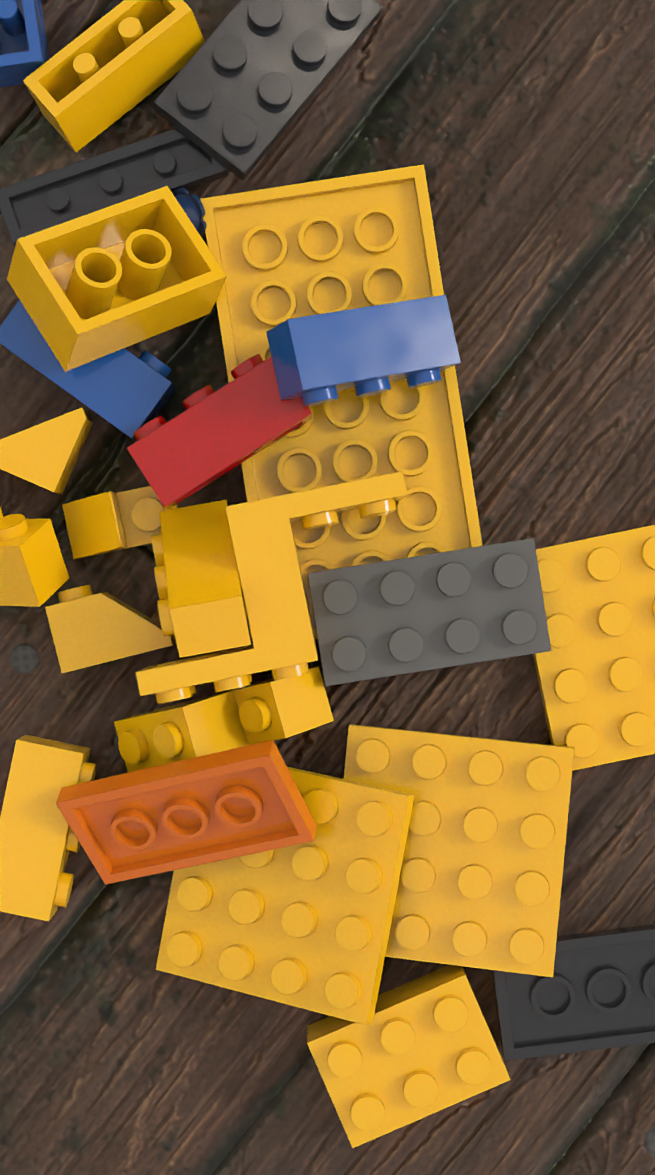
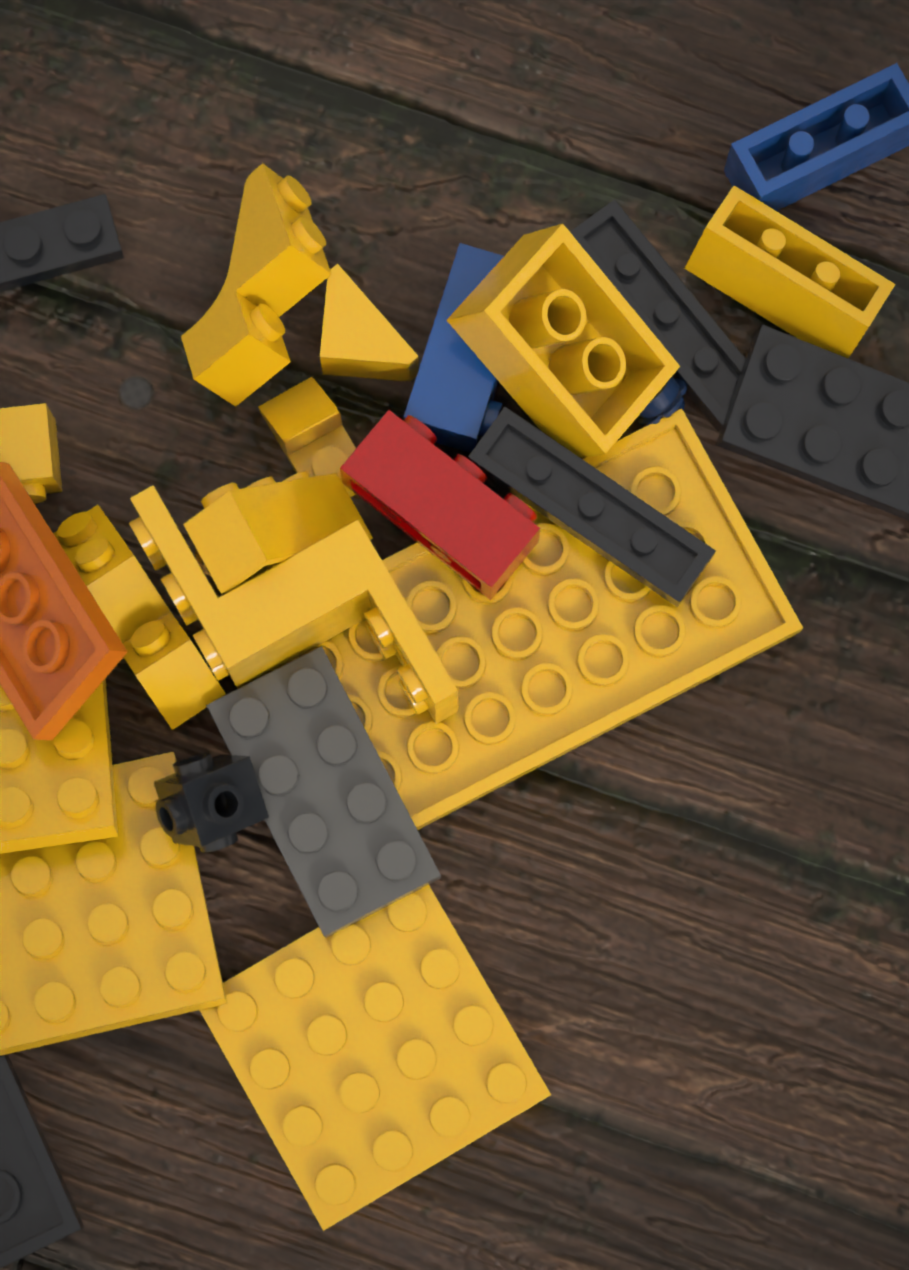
camera: 70 degrees right, 10 degrees down
(99, 629) = (189, 447): yellow slope -> none
(268, 298) = (591, 506): none -> black plate
(363, 349) = (577, 619): brick -> none
(409, 708) = (209, 800): none -> black brick

